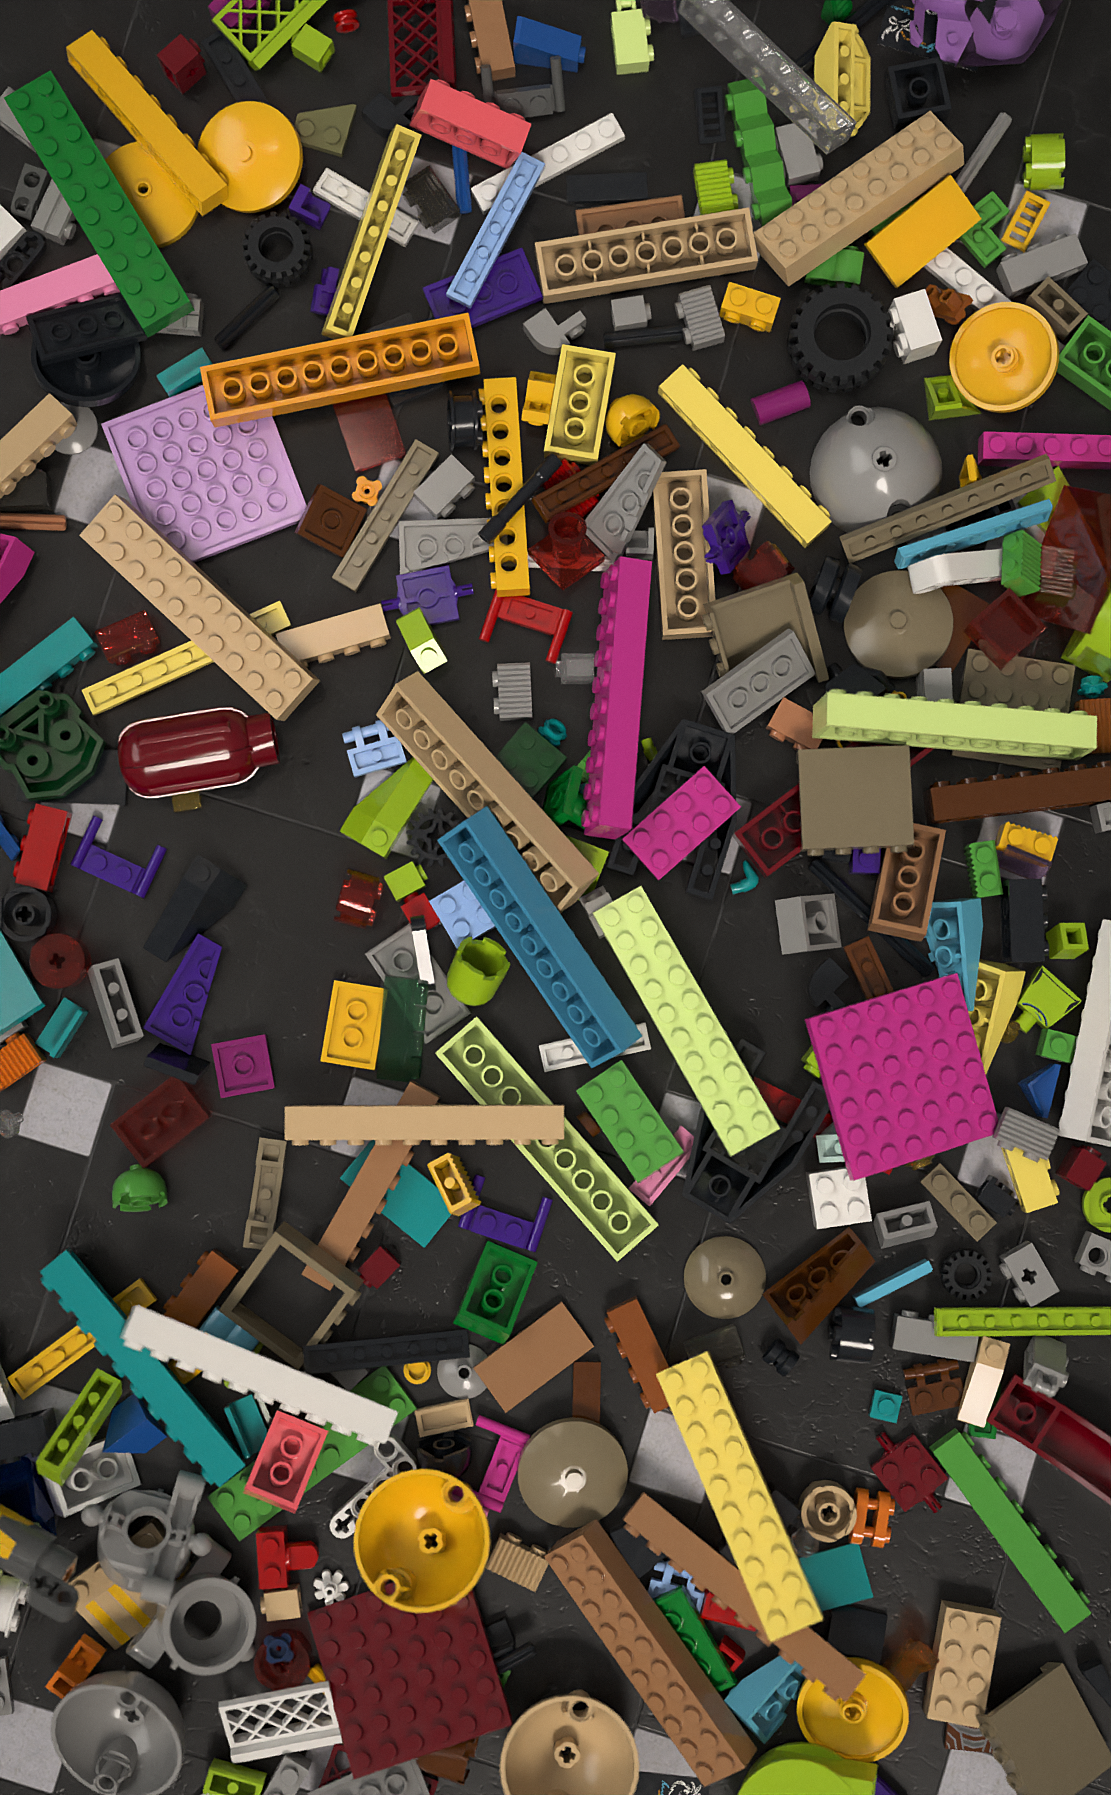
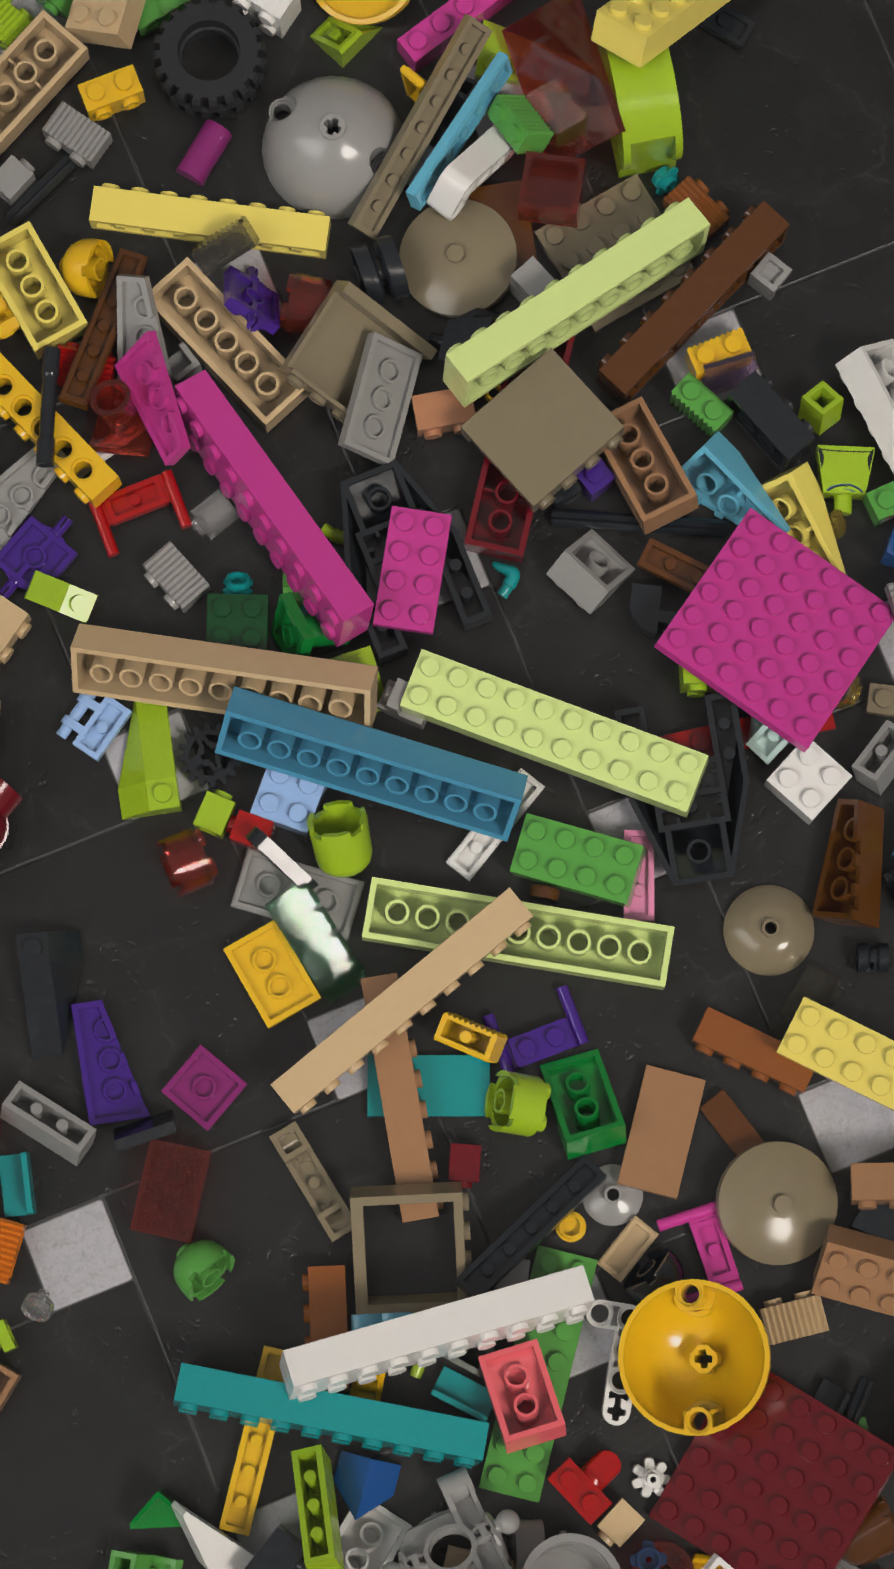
camera: 40 degrees left, 5 degrees down
(448, 1257) = (517, 1103): none -> lime brick
(601, 546) = (154, 397): none -> dark pink wing
(739, 483) = (225, 246): none -> clear smoke brick

